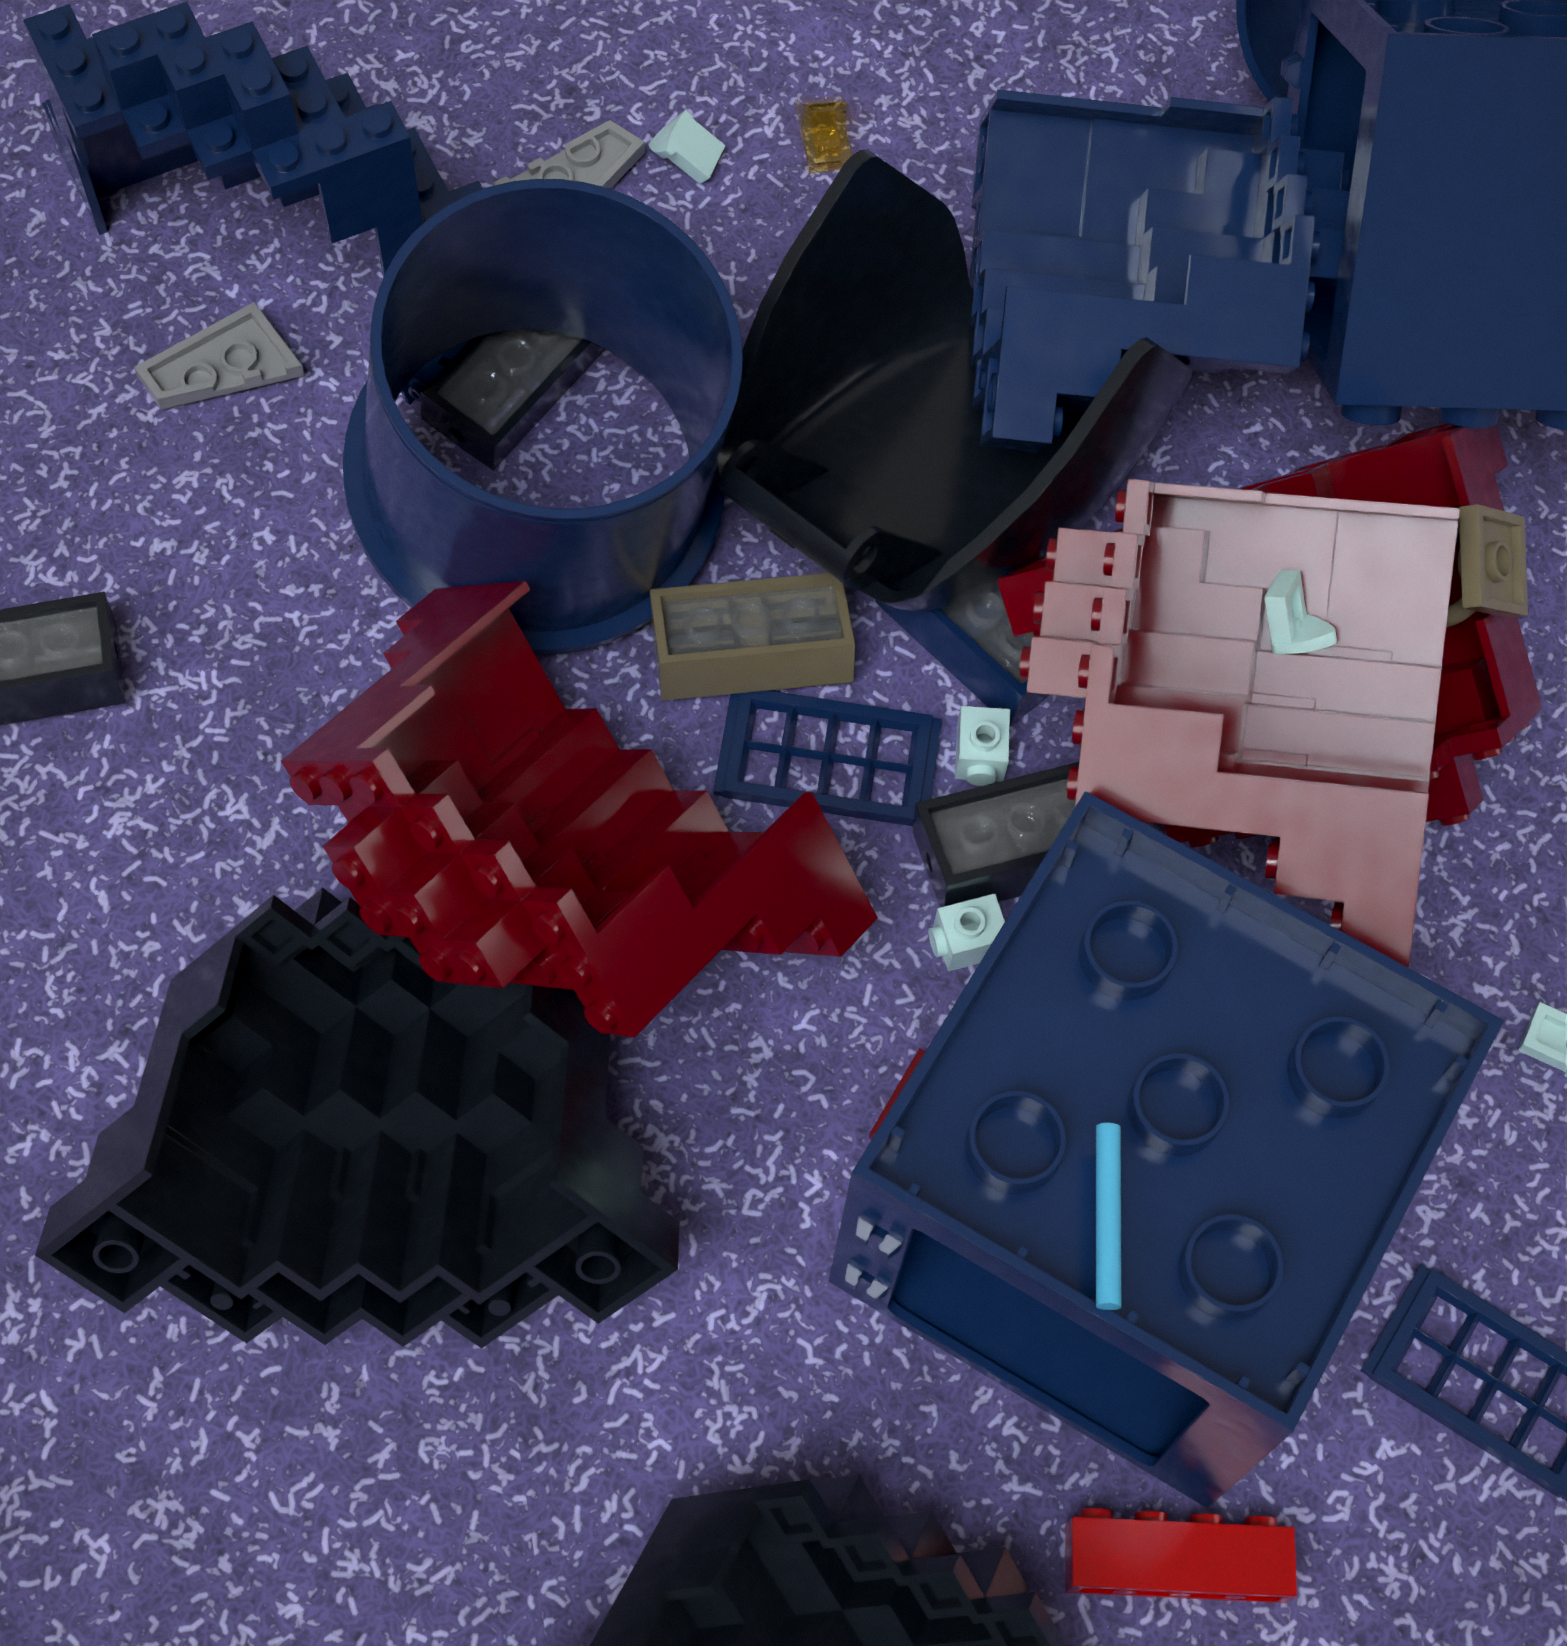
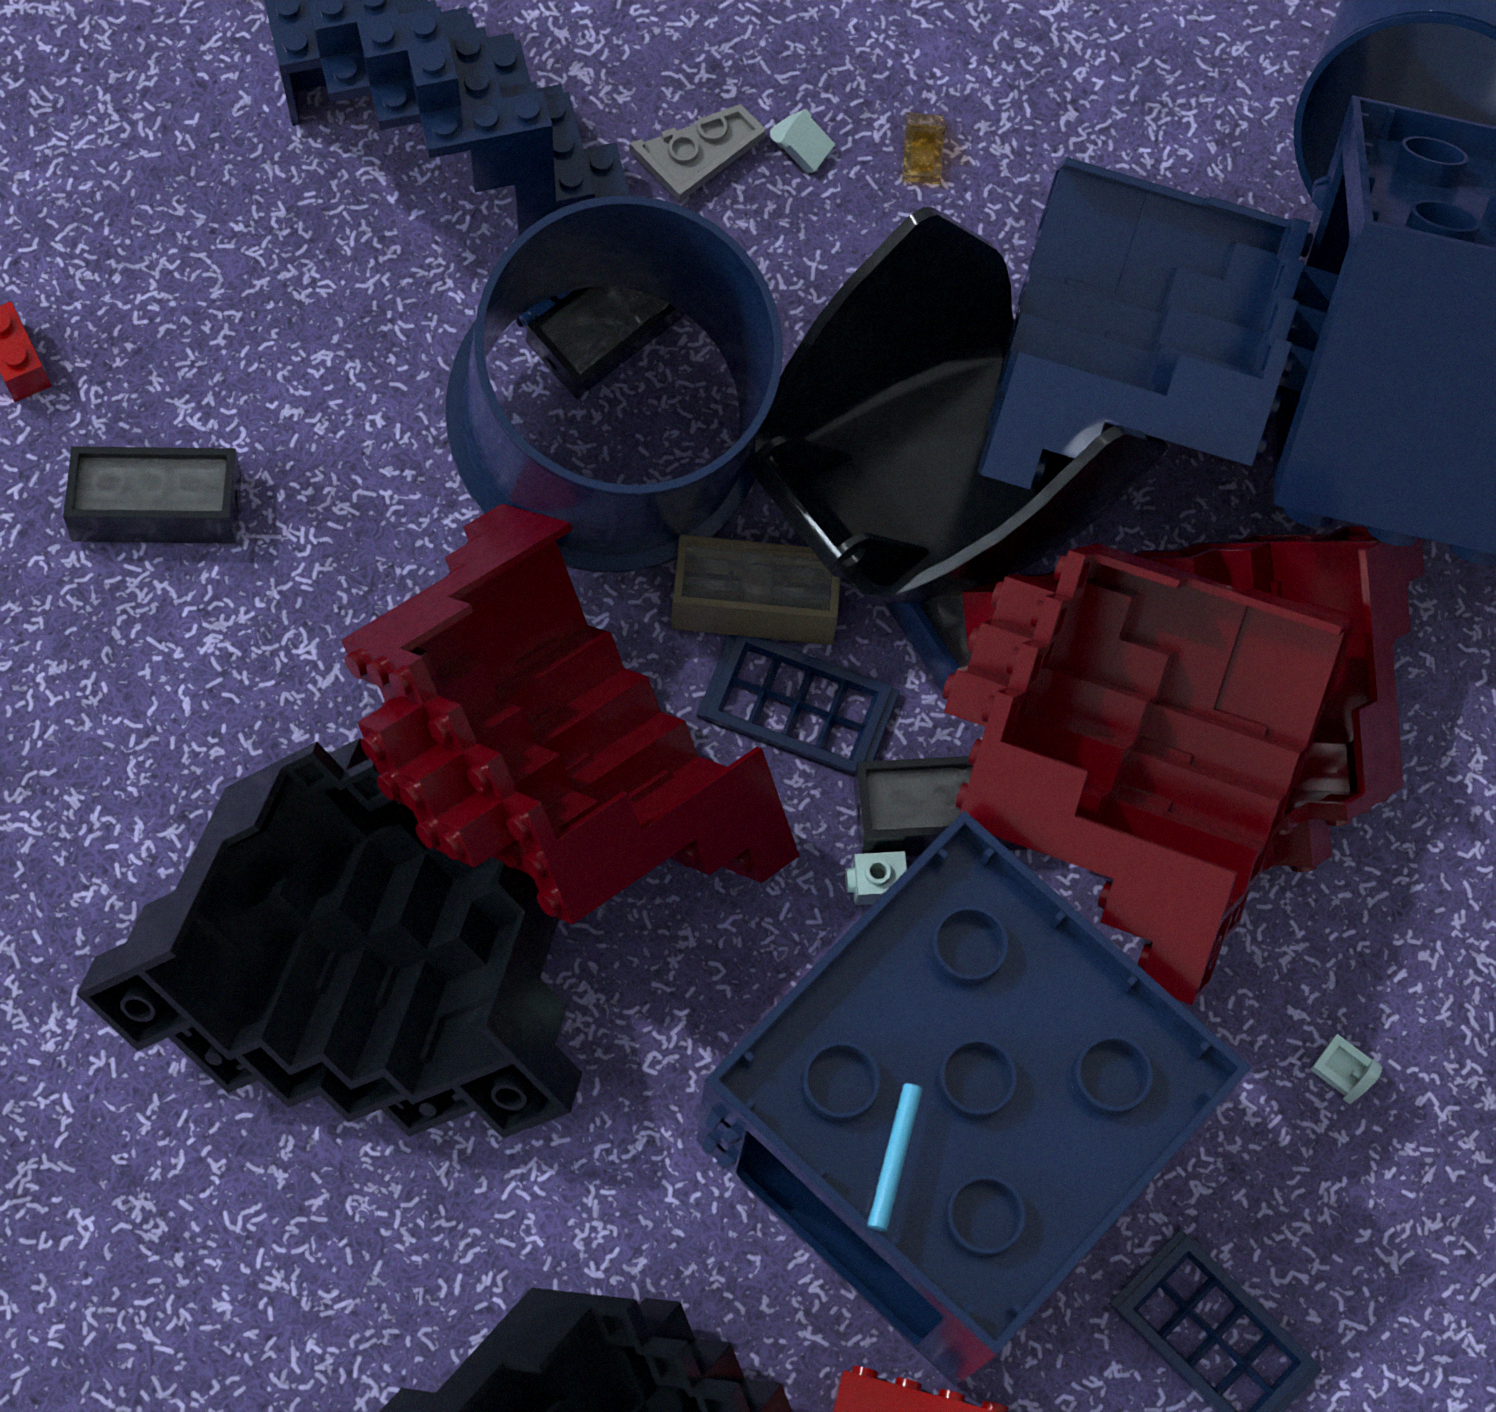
camera: 10 degrees right, 5 degrees up
(220, 360) = (369, 259): light grey wing -> none
(982, 745) = (925, 722): light aqua brick -> none
(1289, 624) = (1185, 686): light aqua tile -> none
(1490, 564) = (1375, 665): dark tan tile -> none

